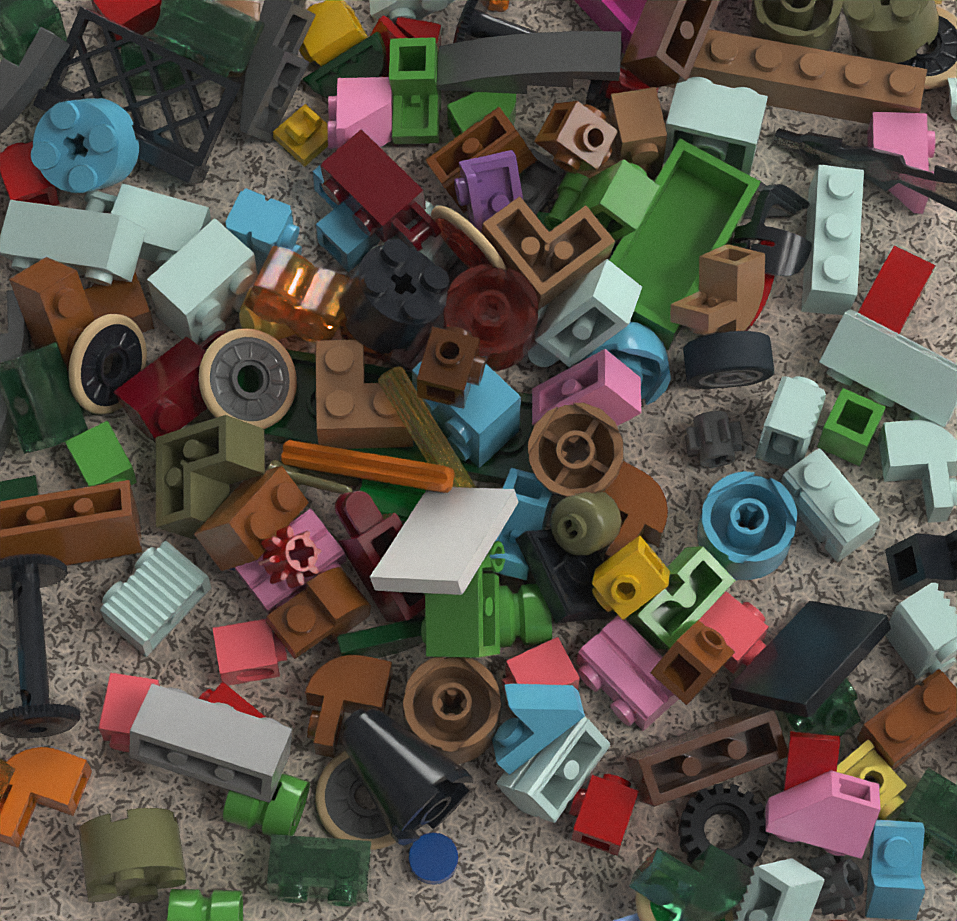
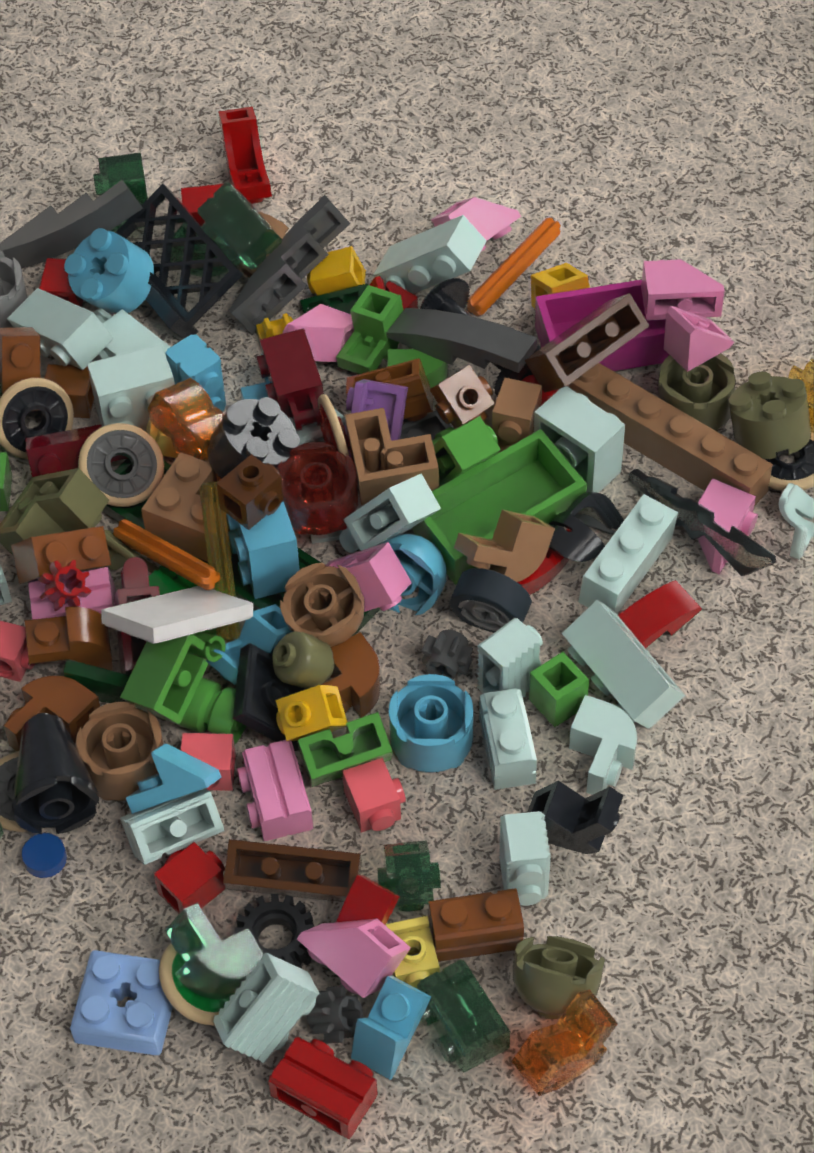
camera: 30 degrees right, 15 degrees down
(692, 661) = (319, 792): dark orange brick -> none
(809, 658) = (416, 833): black tile -> none

